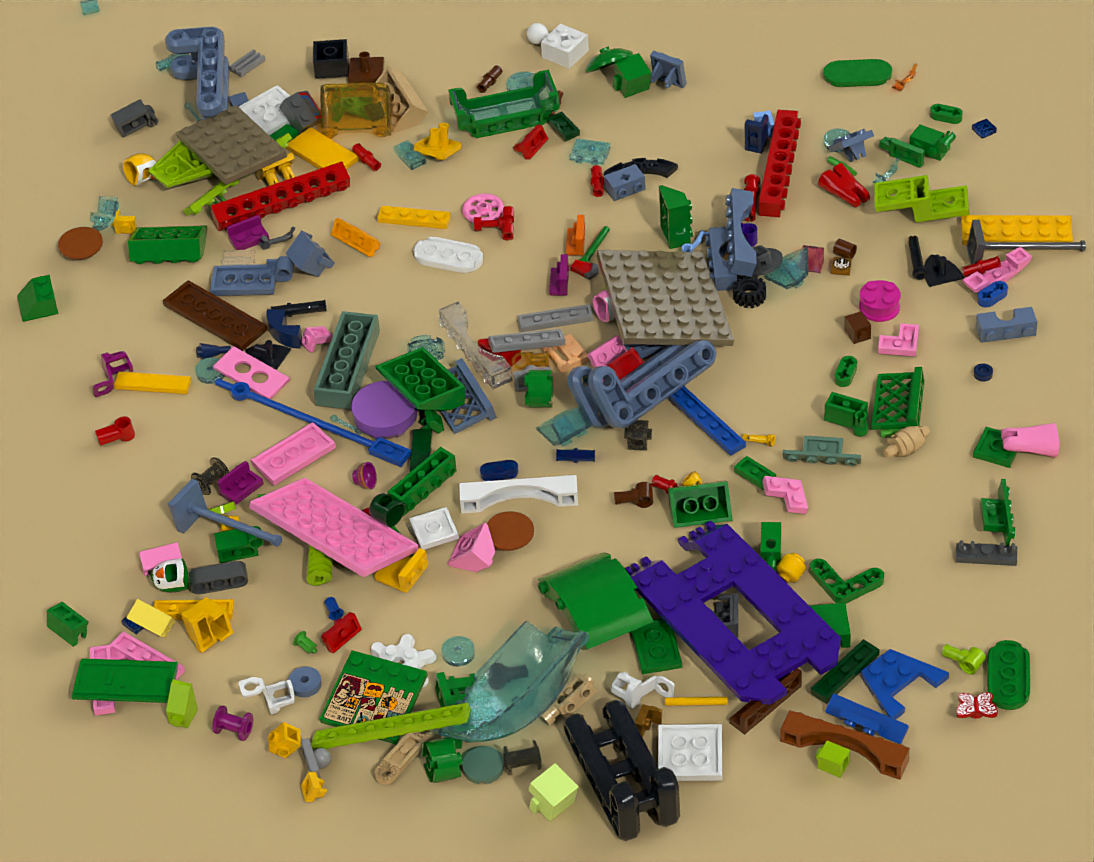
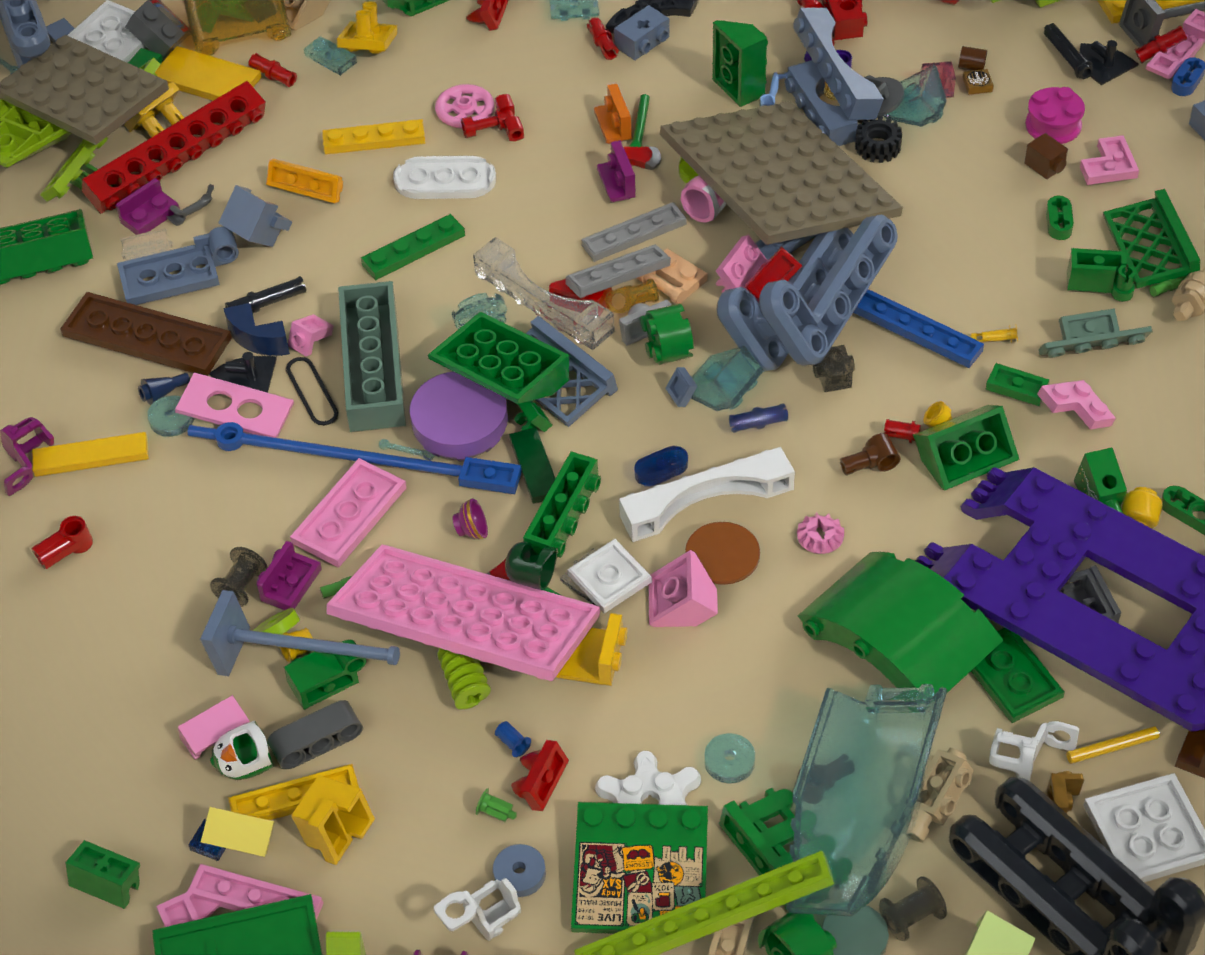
camera: 20 degrees left, 5 degrees up
(296, 375) = (302, 396): none -> black piece
(407, 296) = (413, 246): none -> green plate
(534, 424) = (681, 387): none -> sand blue tile
(584, 540) = (812, 541): none -> bright pink gear

